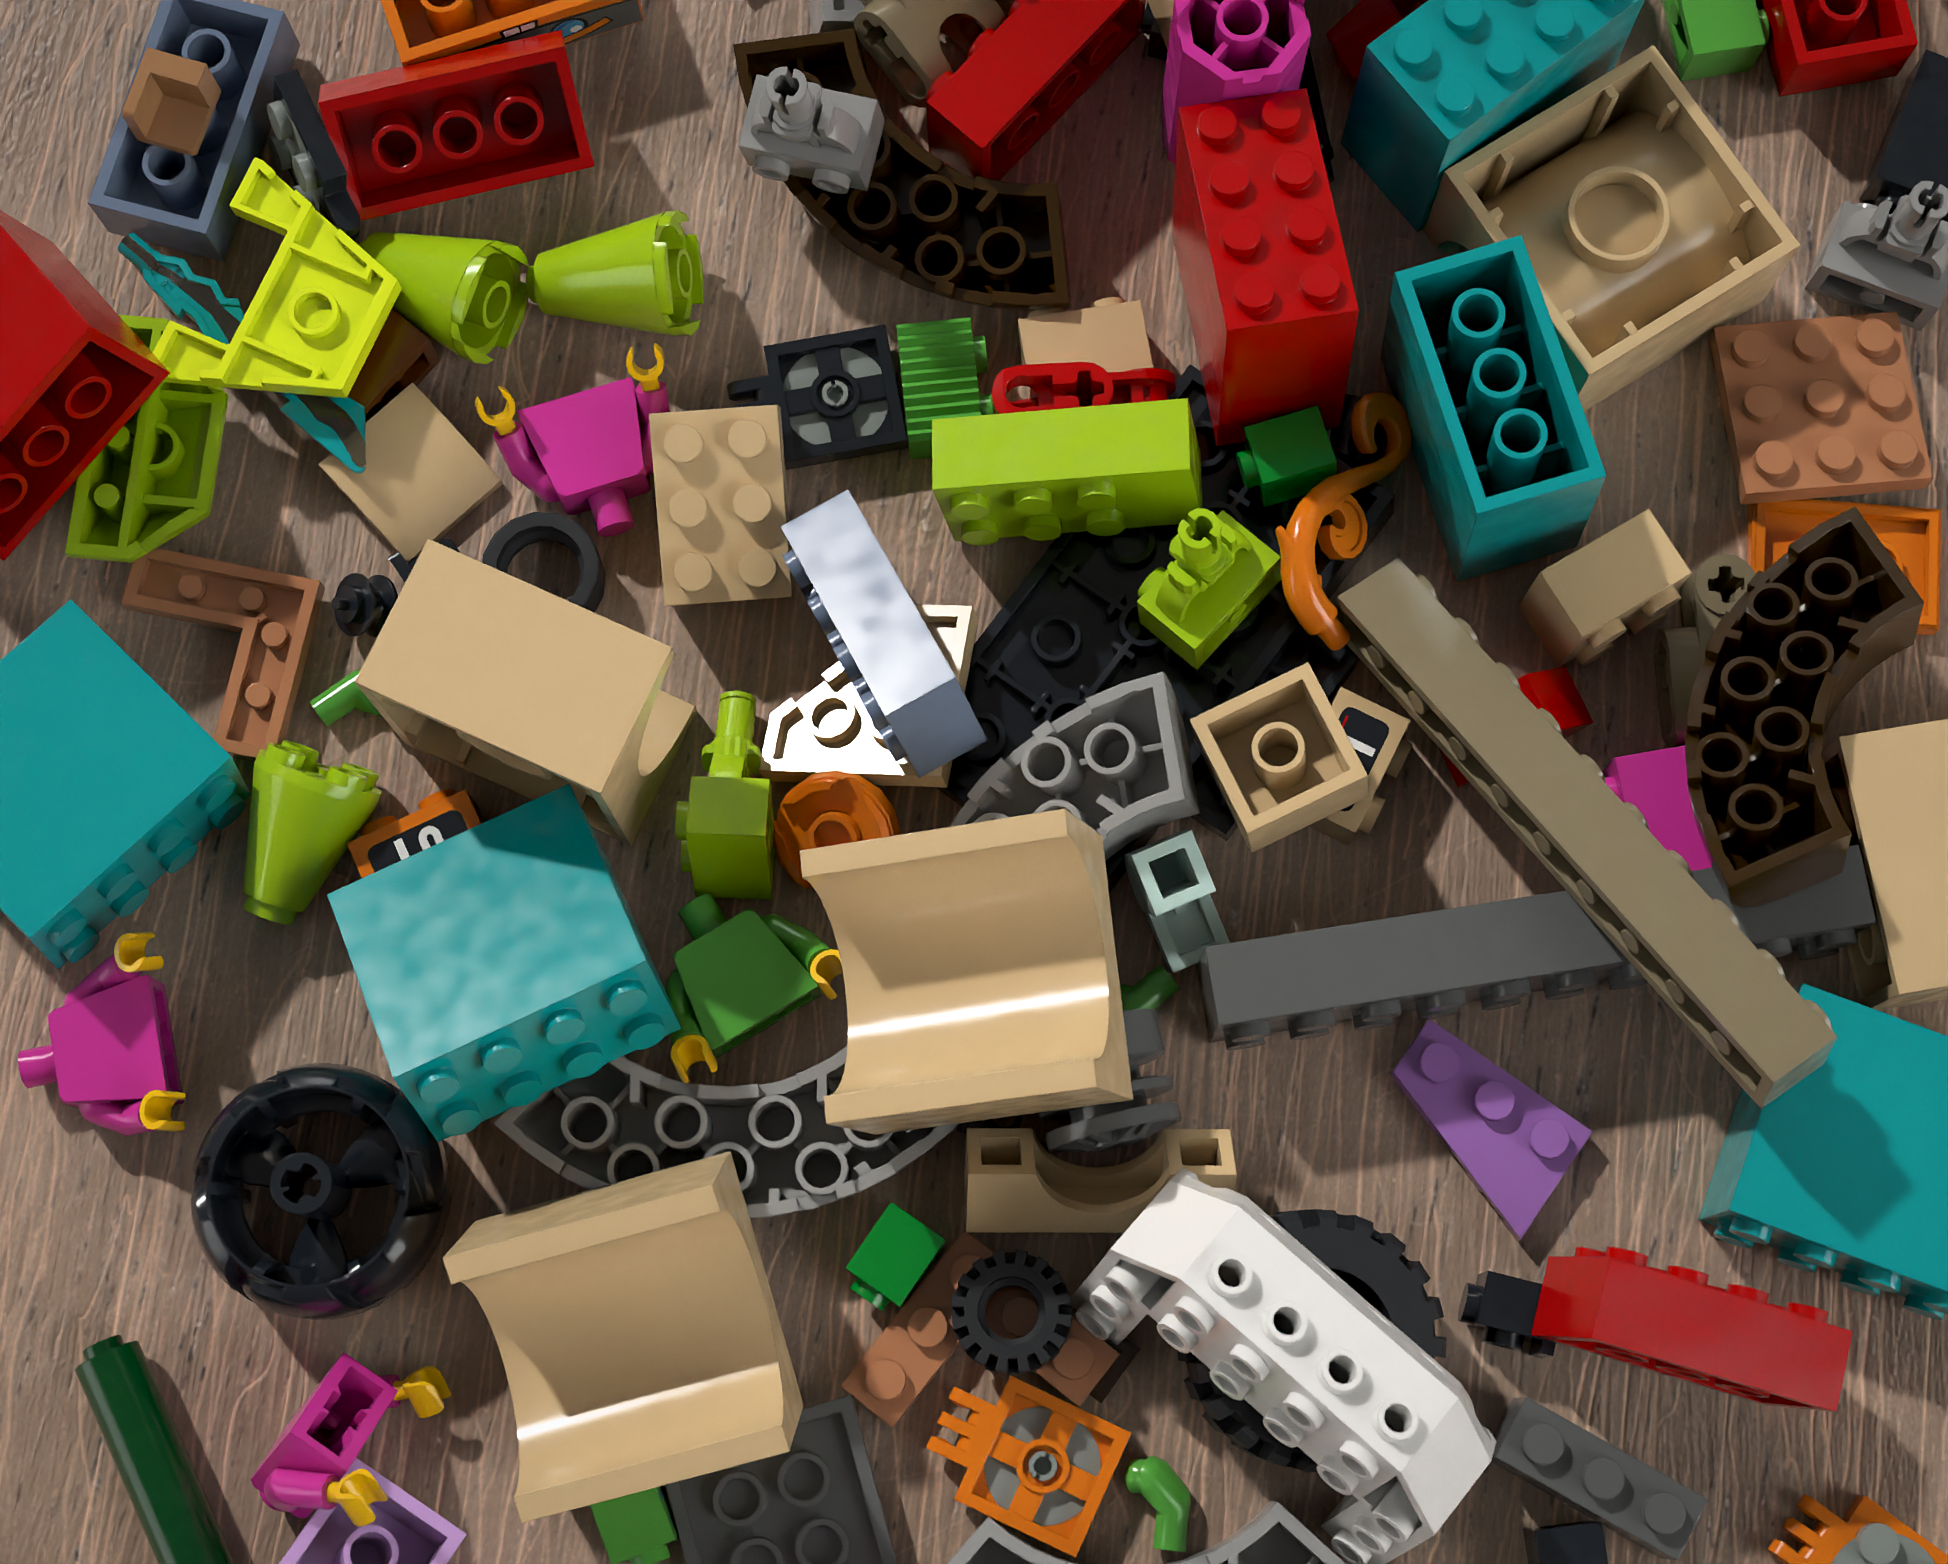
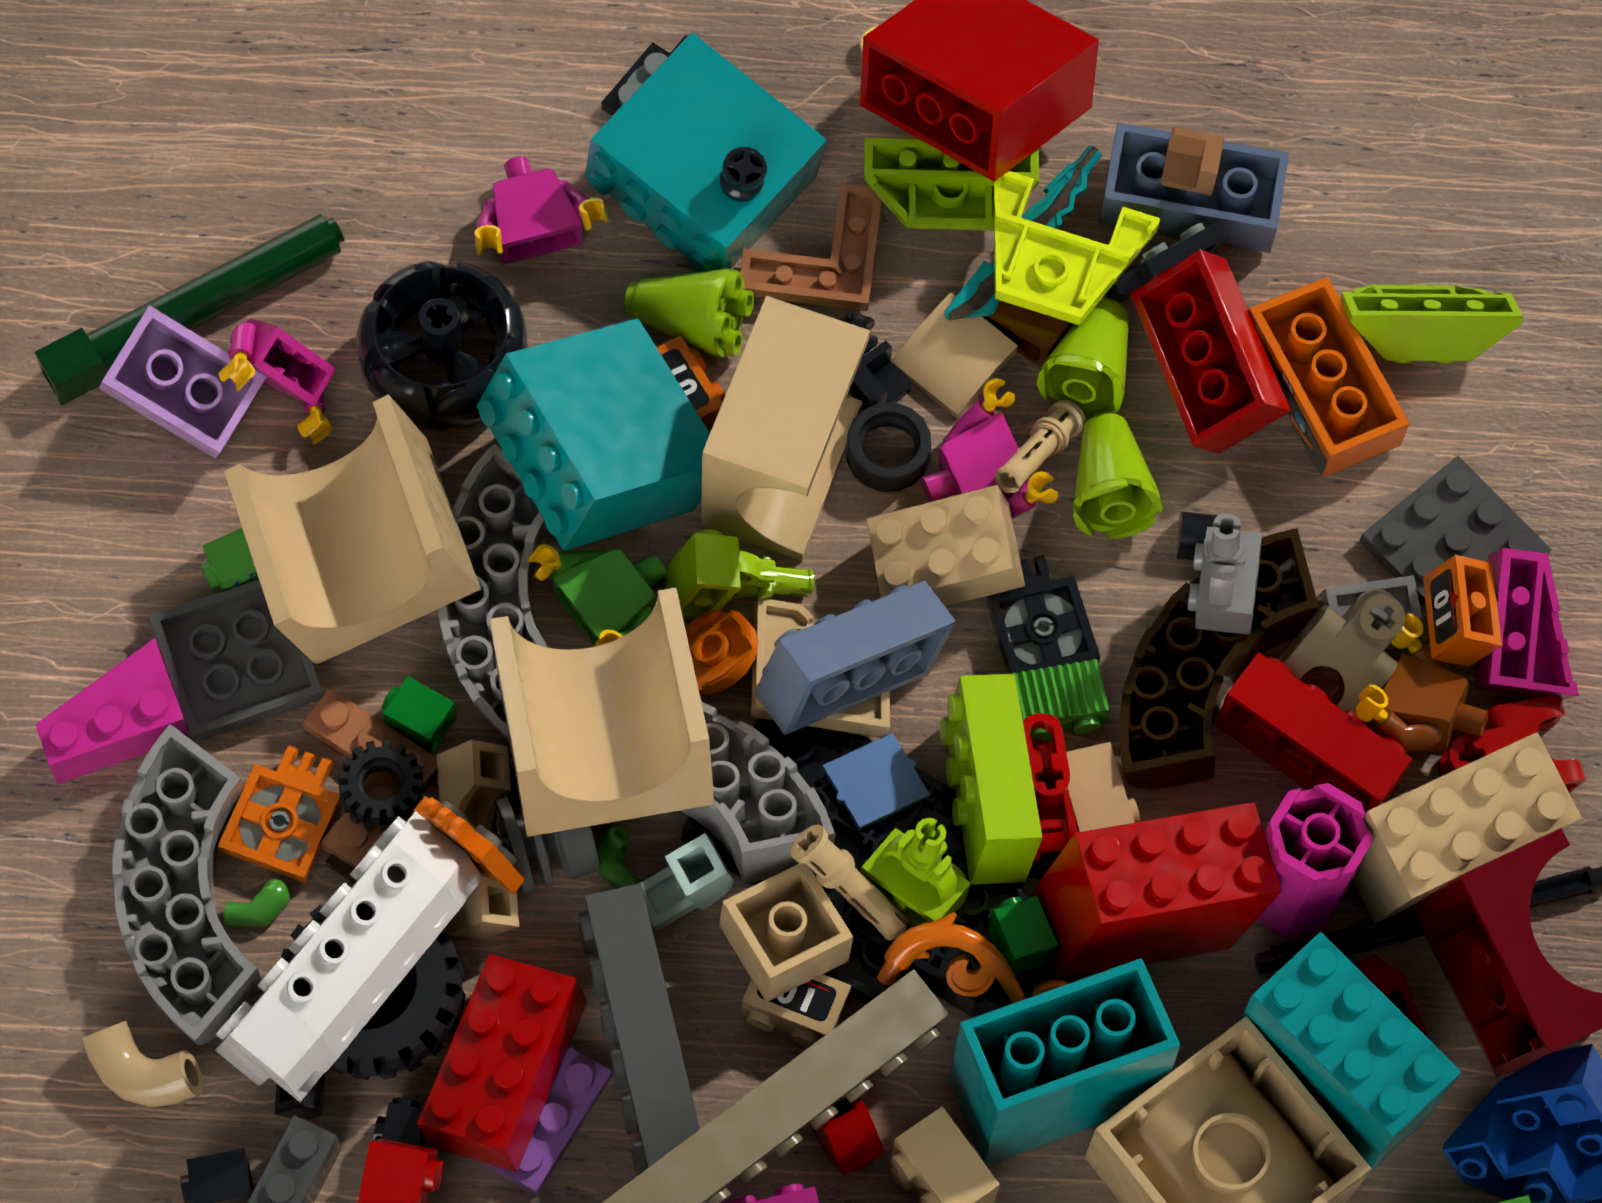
camera: 80 degrees right, 10 degrees down
(112, 705) = (745, 163): none -> black wheel
(560, 355) = (1046, 439): none -> tan pin
(715, 179) = (1192, 530): none -> black brick
(1044, 634) = (875, 781): none -> medium blue piece
(1128, 1195) = (477, 842): none -> orange piece
(1213, 674) = (837, 870): none -> tan pin
(1426, 1163) = (502, 1062): none -> red brick

